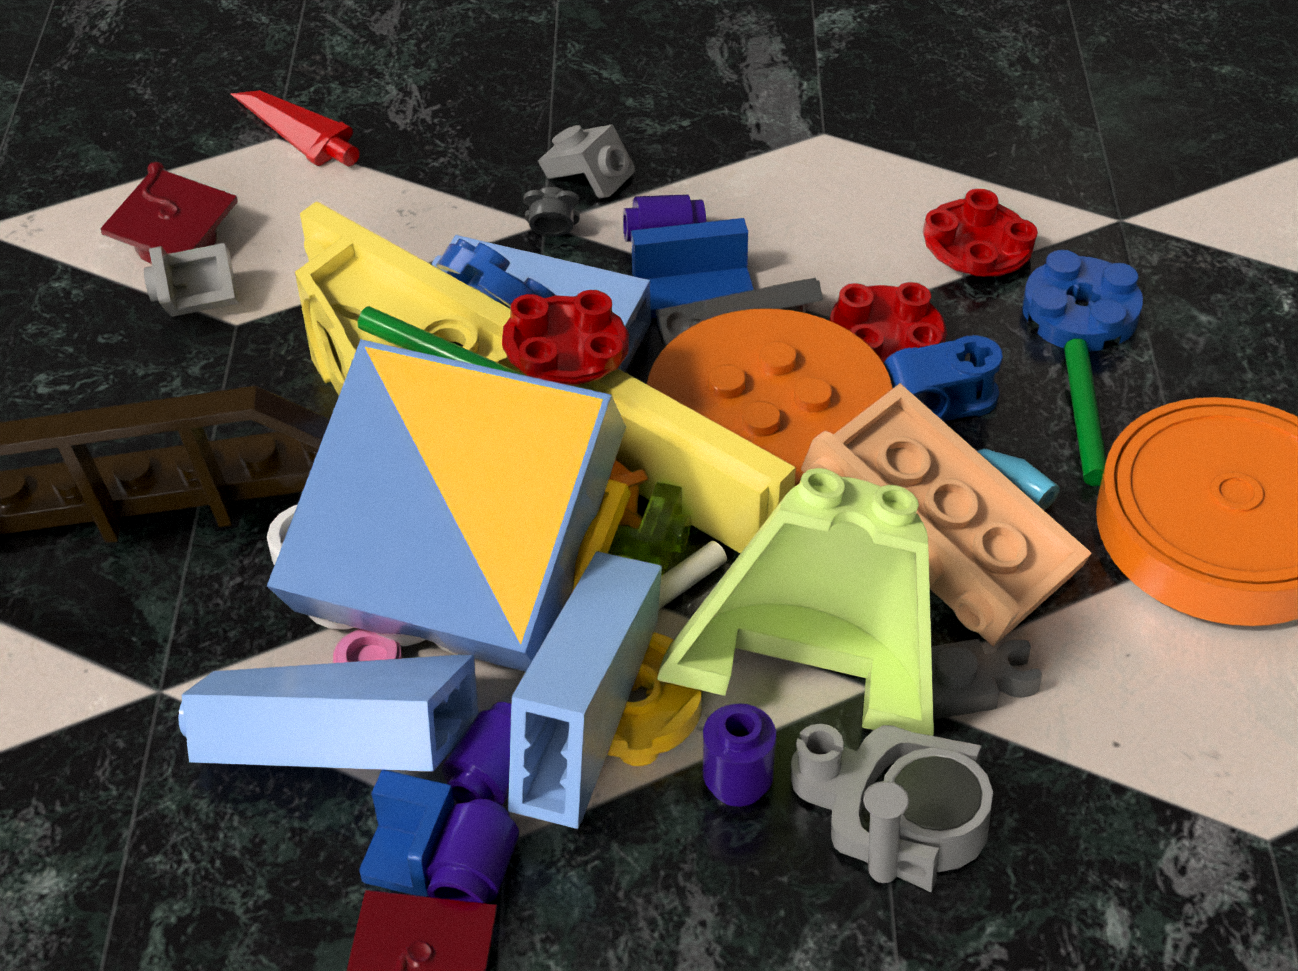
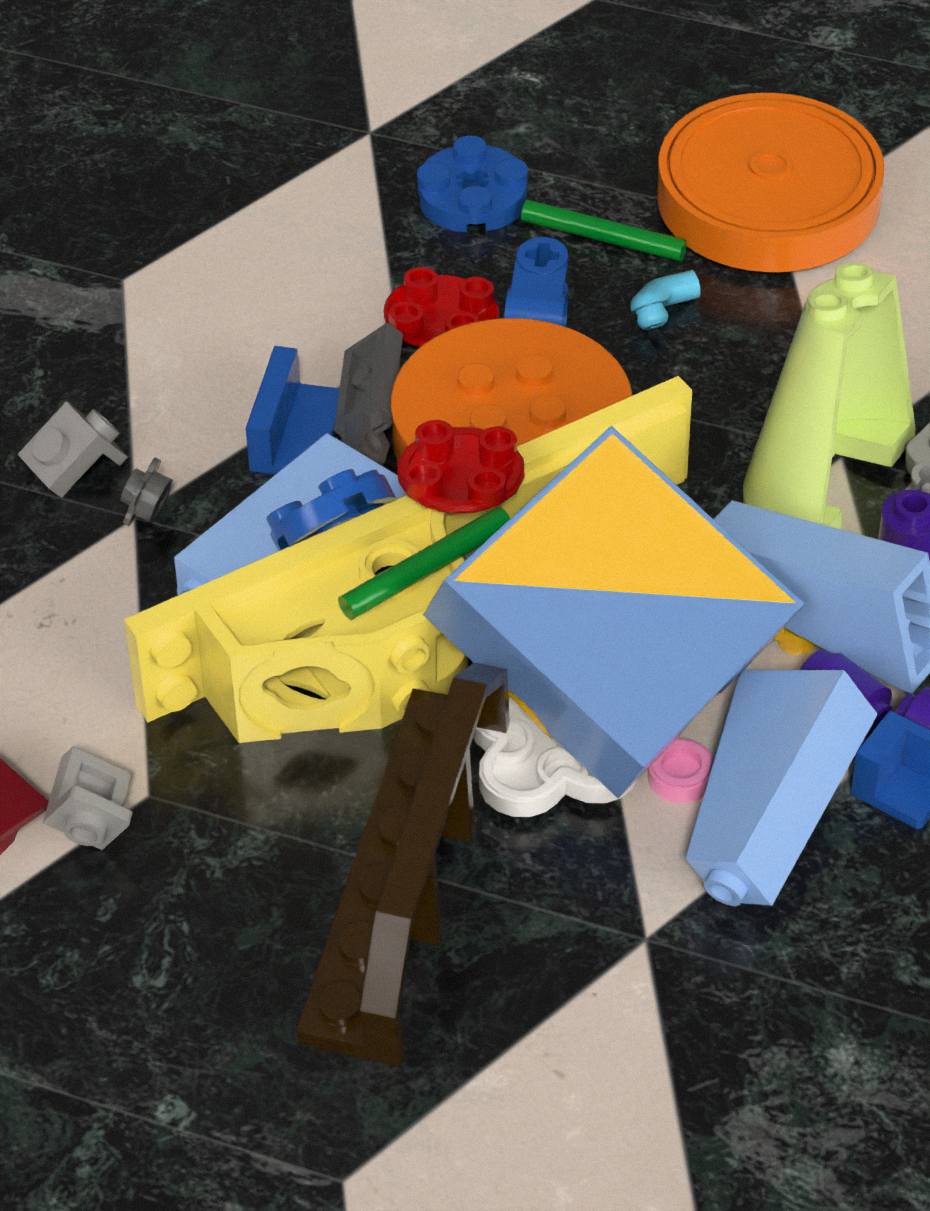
camera: 70 degrees left, 0 degrees up
(662, 212) = (215, 416): dark purple brick -> none
(979, 235) = (354, 217): red dish -> none
(987, 540) = (697, 332): light nougat bracket -> none

